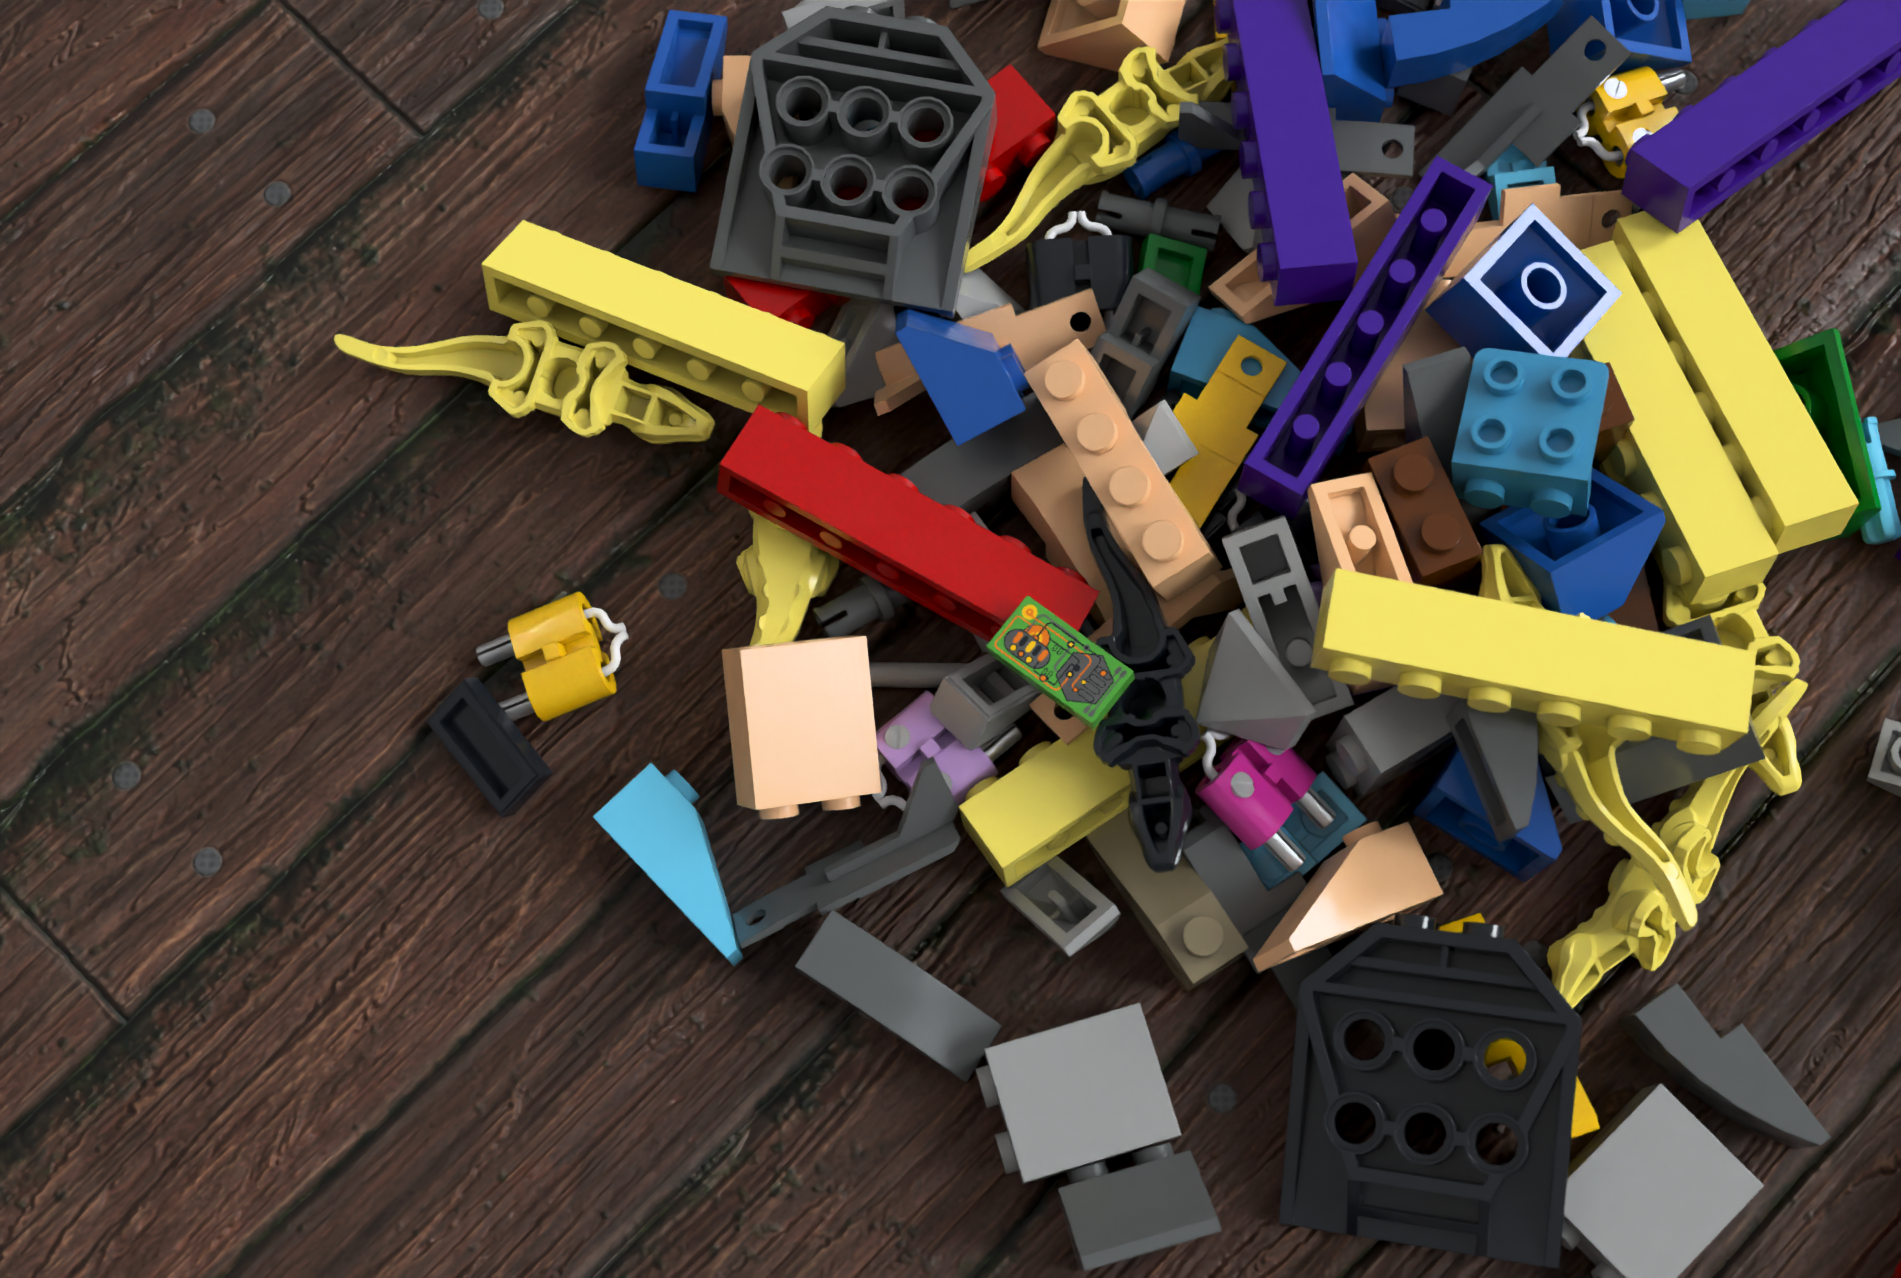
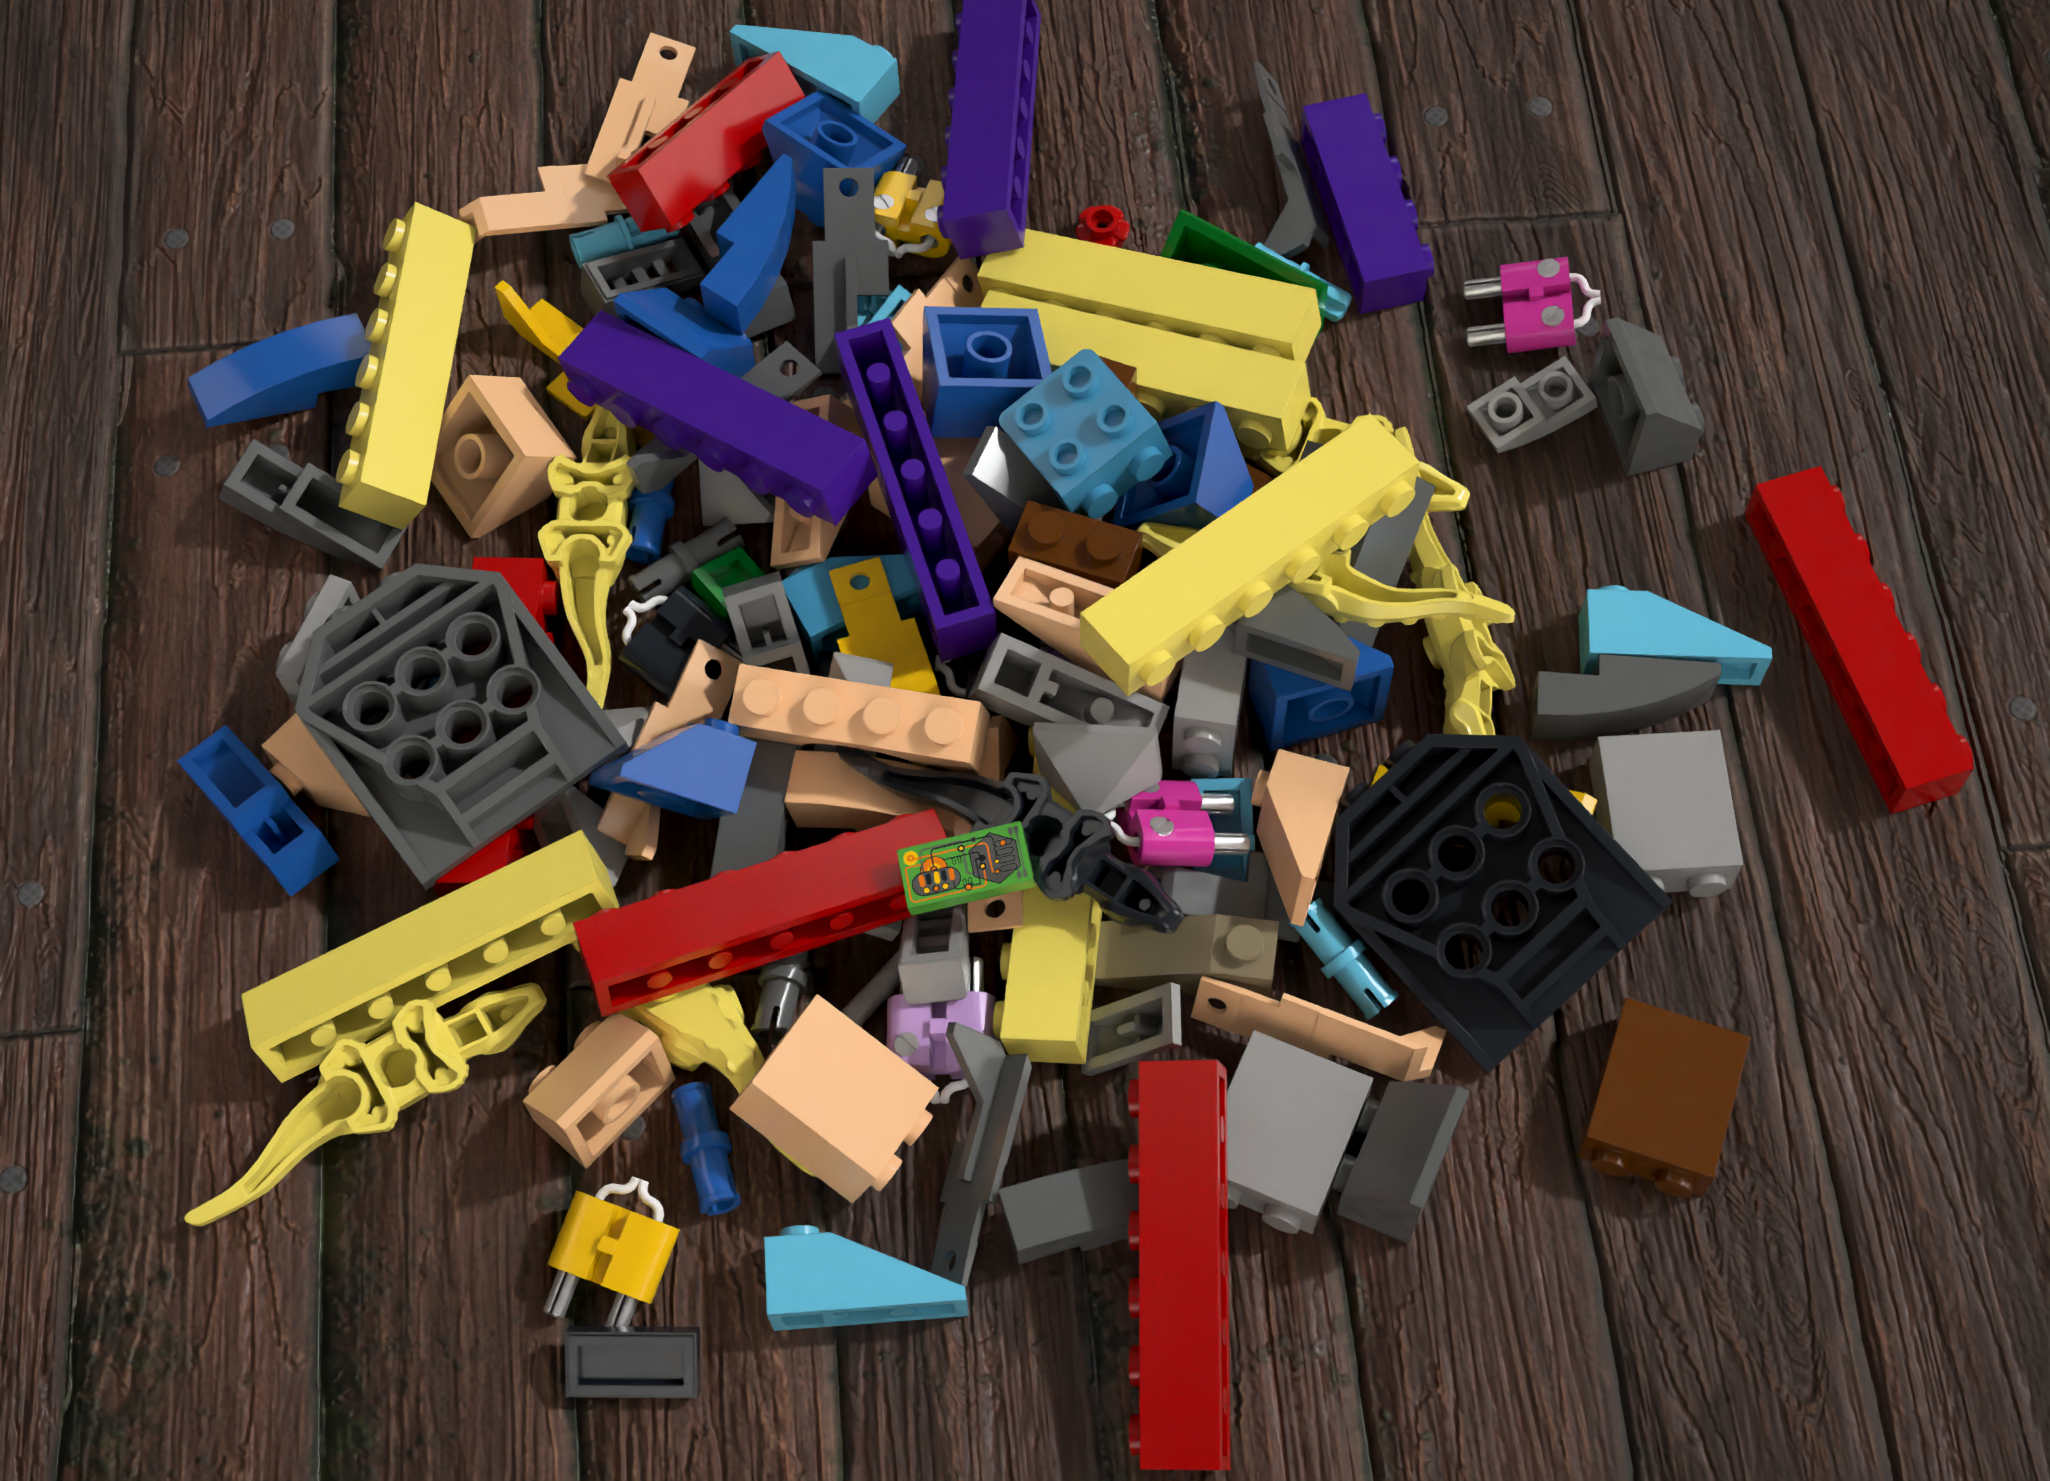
camera: 50 degrees left, 10 degrees down
(669, 537) = (600, 1086): none -> light nougat slope
(694, 656) = (705, 1148): none -> blue pin
(889, 1106) = (1182, 1266): none -> red brick
(1183, 1057) = (1319, 1030): none -> light nougat piece
(1271, 1028) = (1345, 960): none -> medium azure pin
(1759, 292) = (1115, 232): none -> red plate
(1812, 1050) = (1651, 627): none -> medium azure slope

